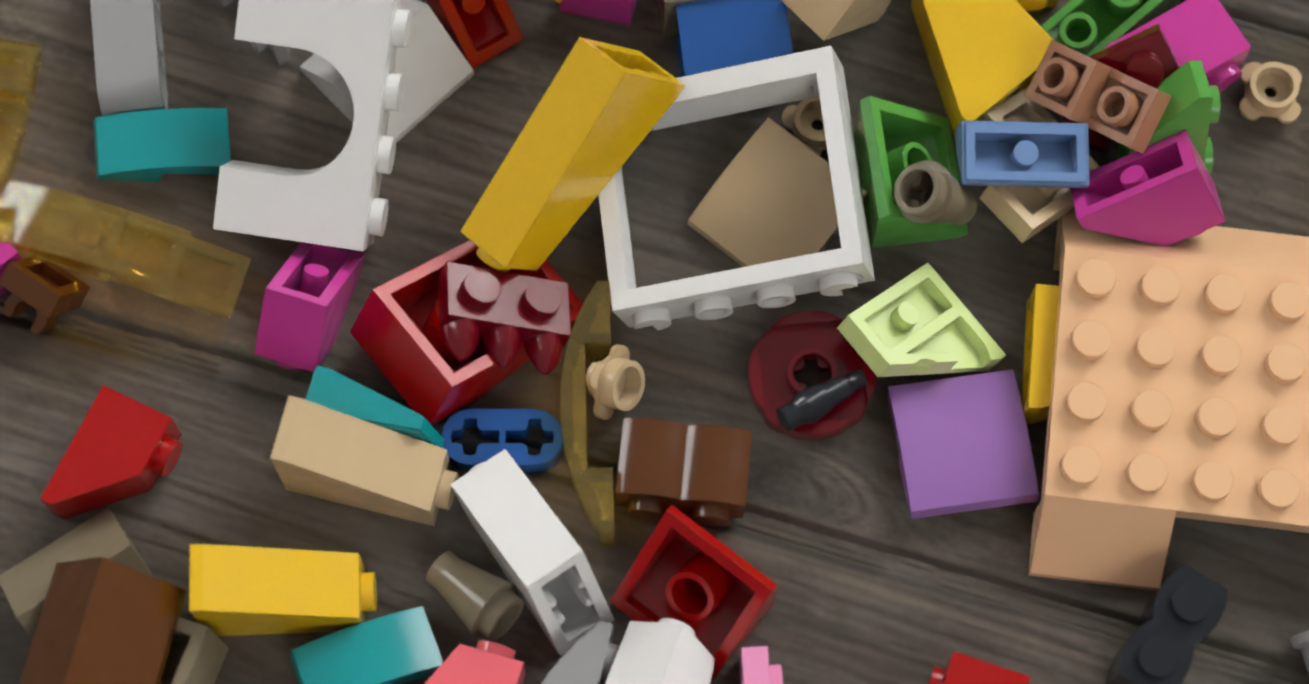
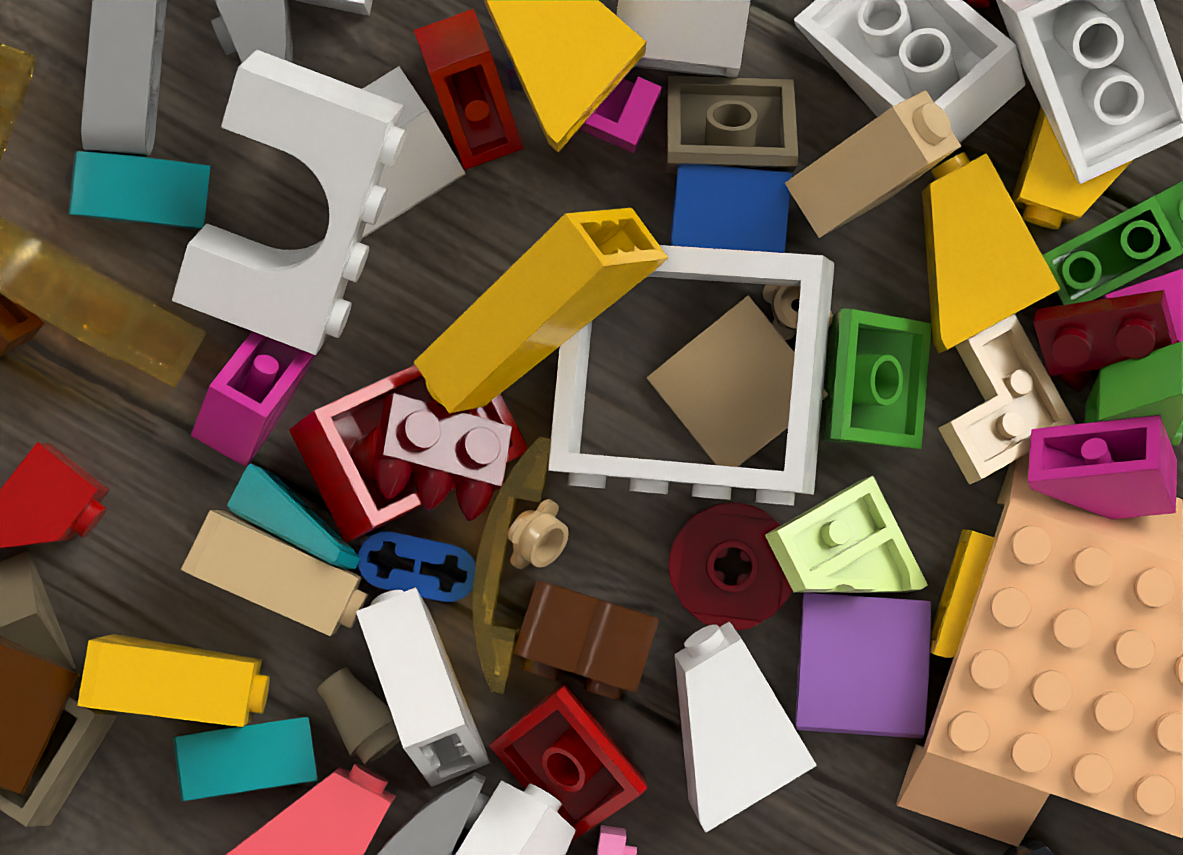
camera: 15 degrees right, 15 degrees up
(818, 400) = (730, 601): black piece -> none
(847, 520) = (732, 727): none -> white slope
(933, 195) = (889, 425): dark tan cone -> none
(1023, 154) = (990, 400): medium blue slope -> none
(1098, 96) = (1081, 356): nougat slope -> none

